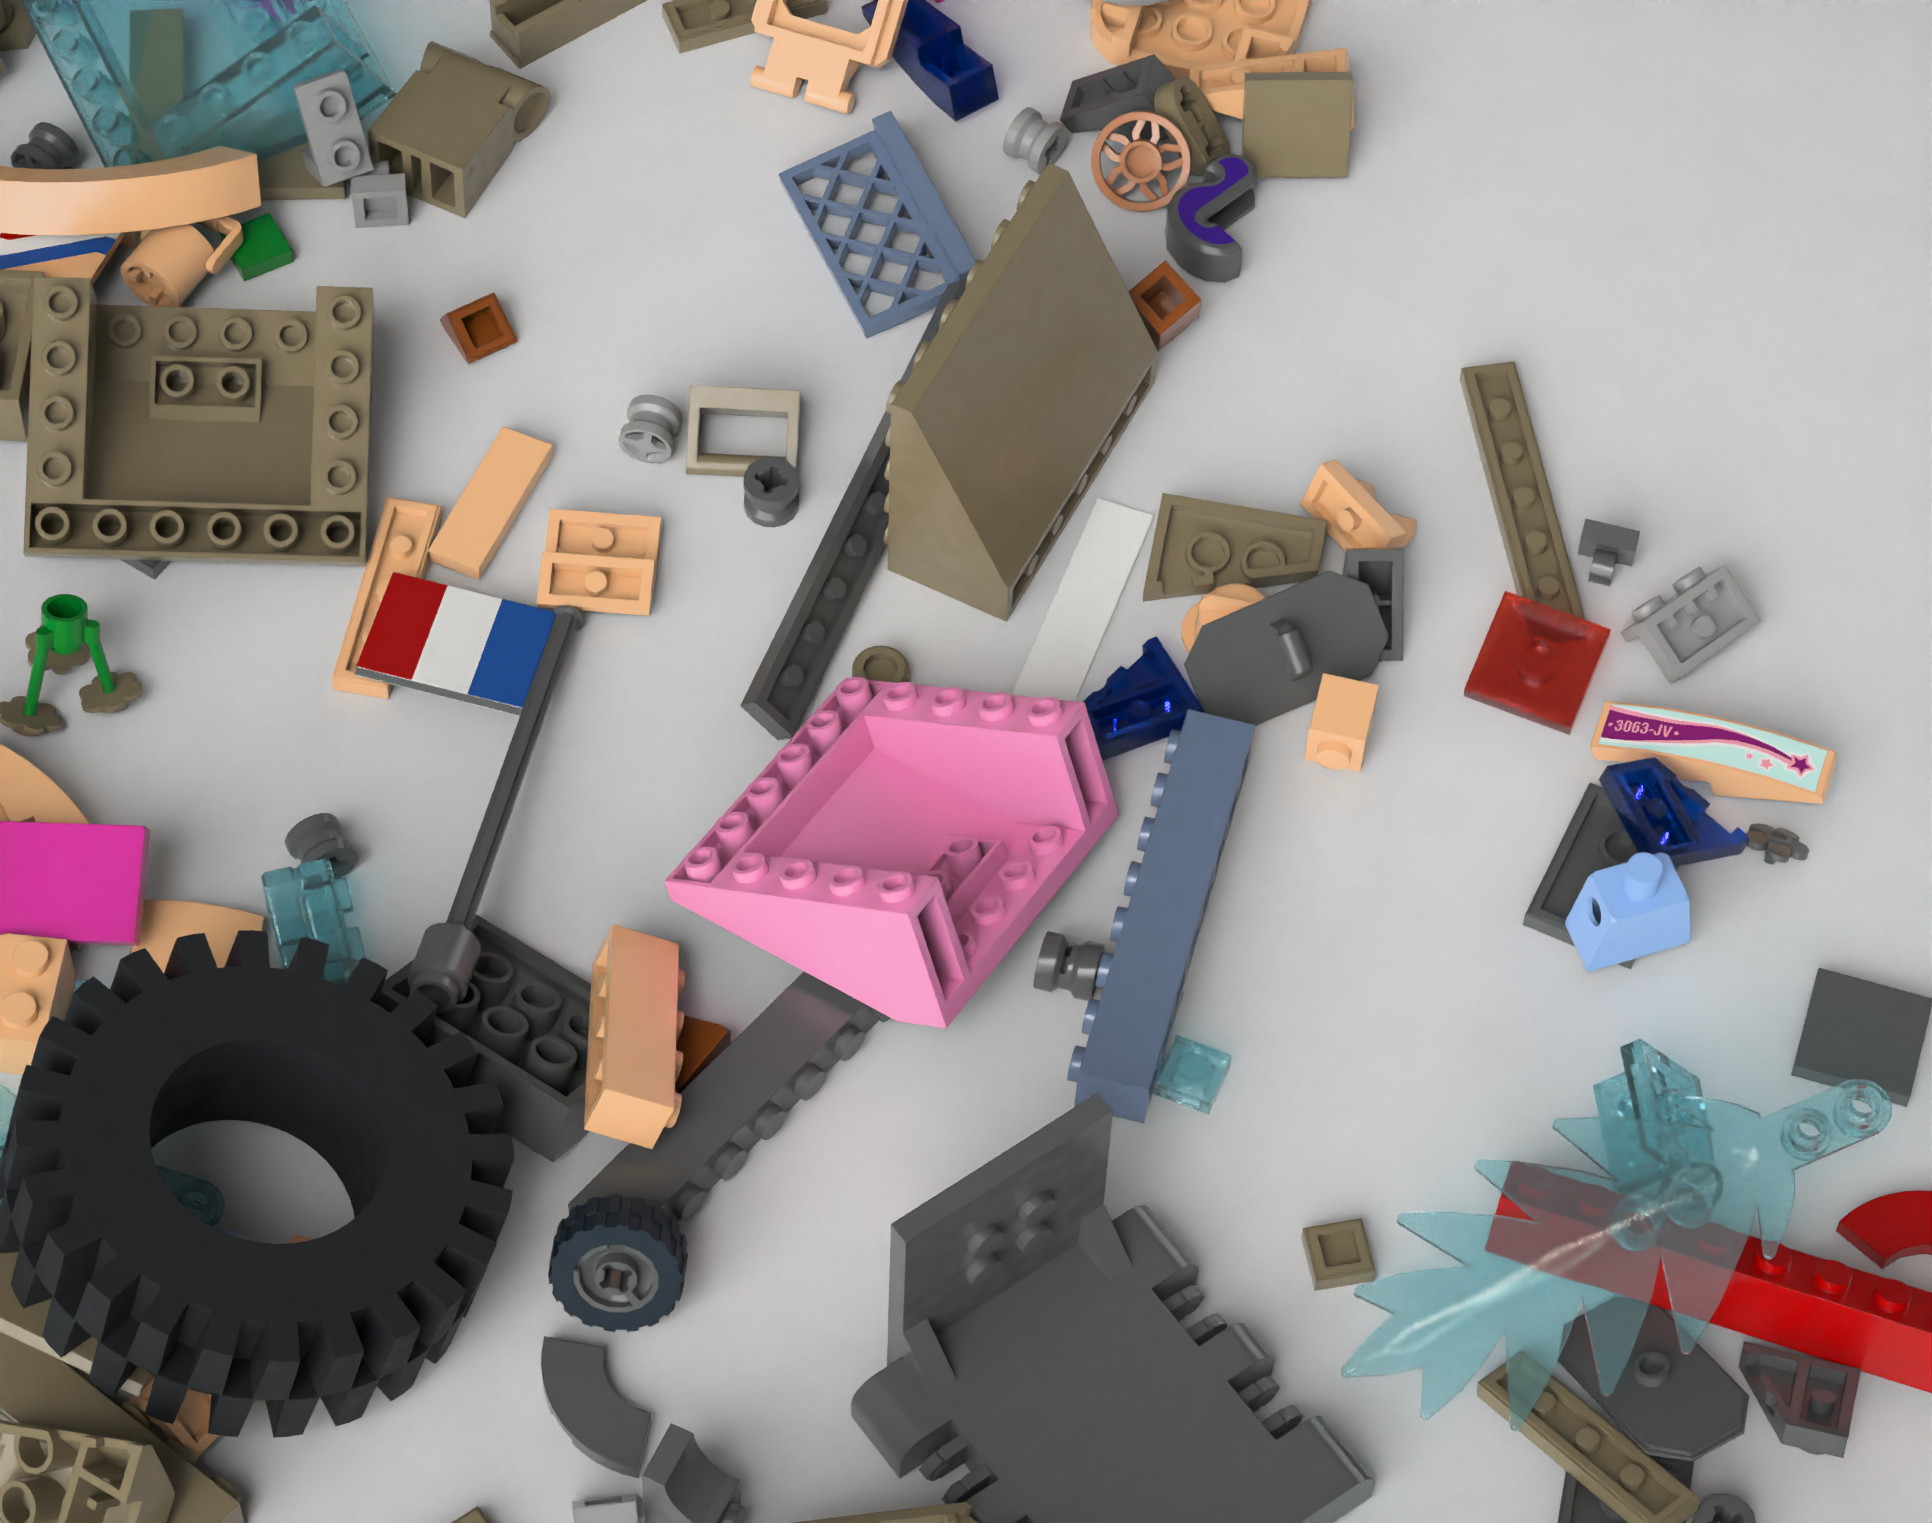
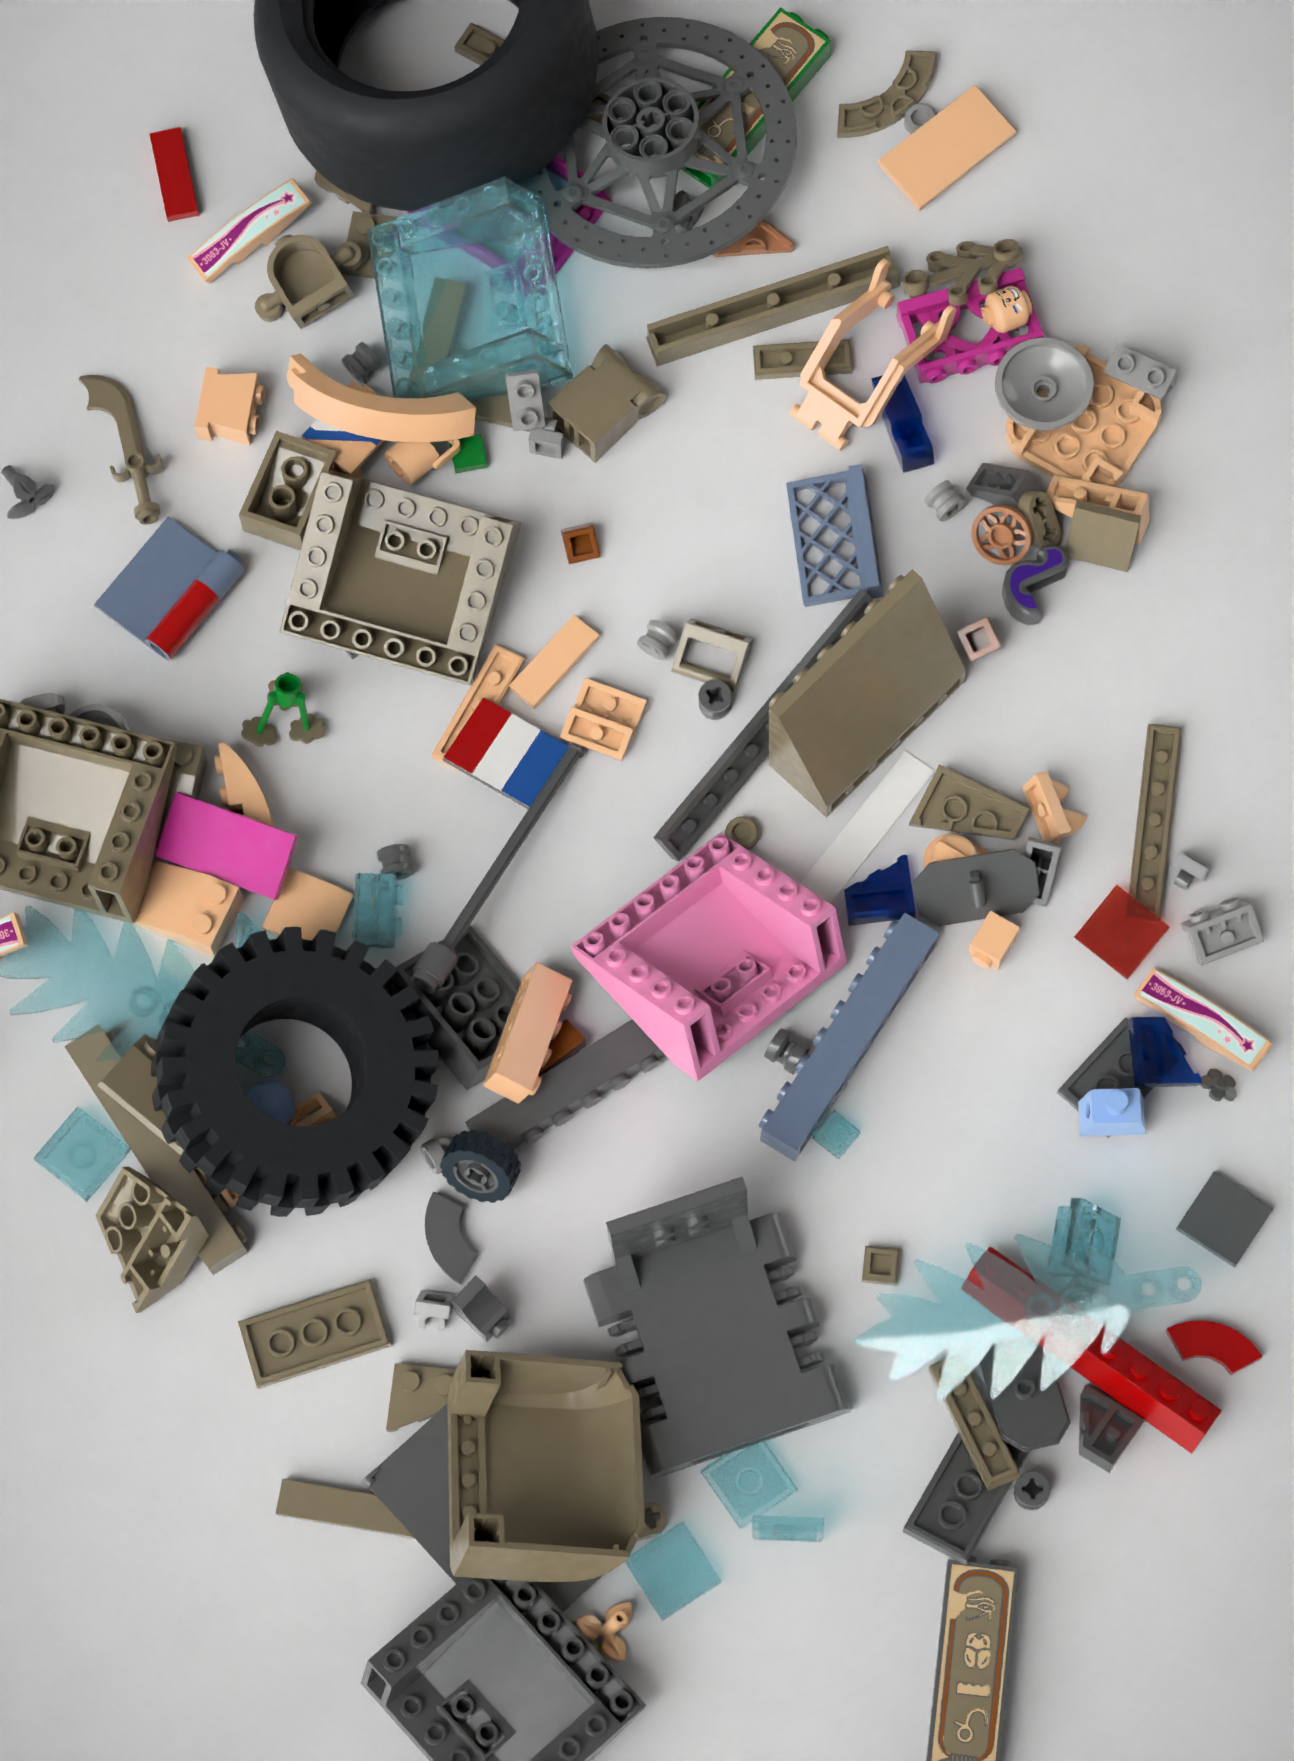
camera: 25 degrees right, 15 degrees up
(527, 1275) = (433, 1152): none -> light grey tile

